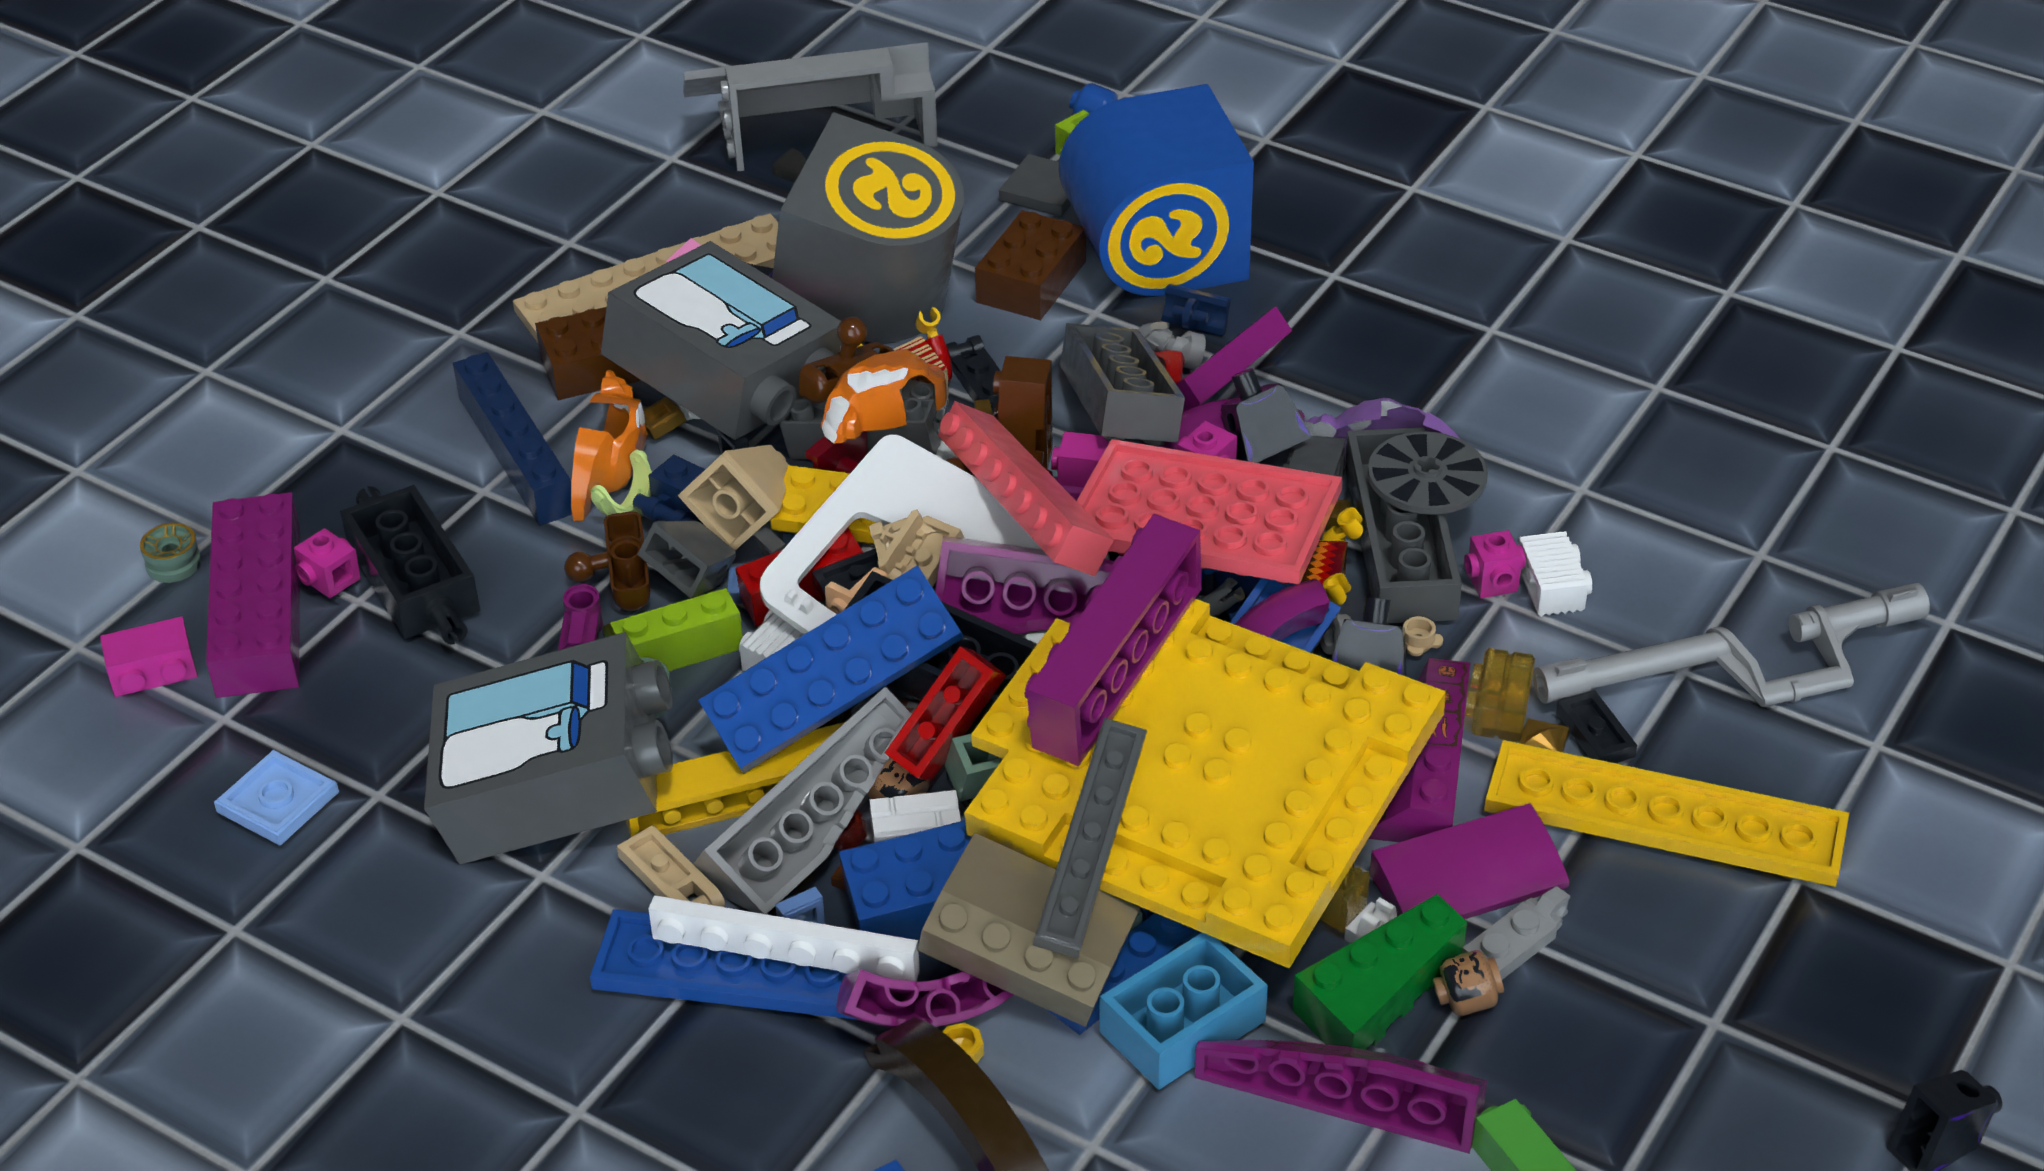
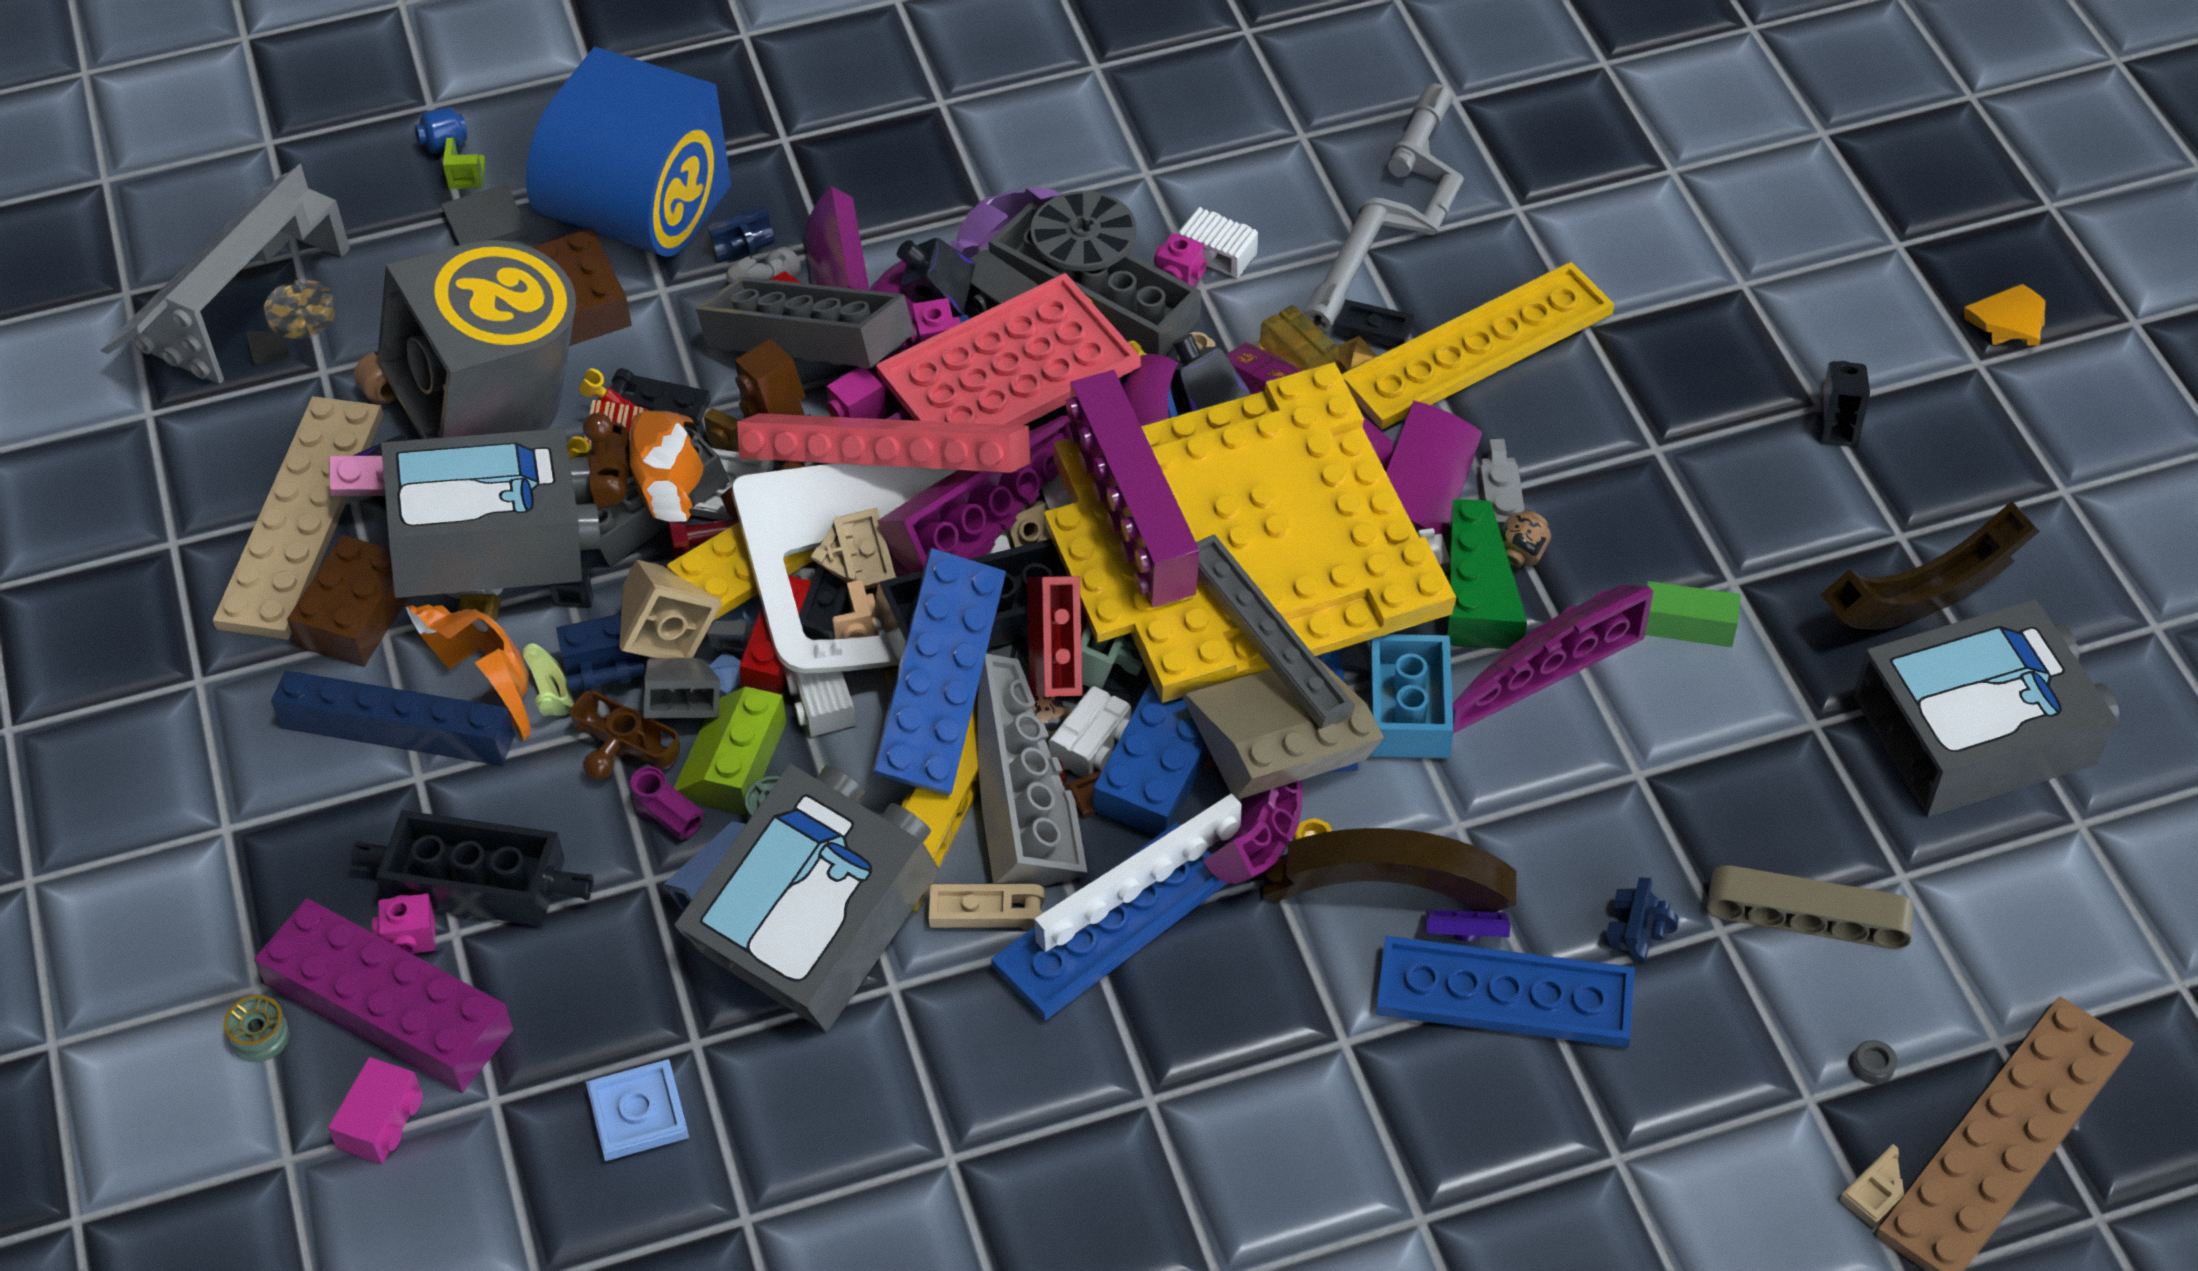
camera: 50 degrees left, 10 degrees up
(803, 906) = (1107, 851): medium blue tile -> none

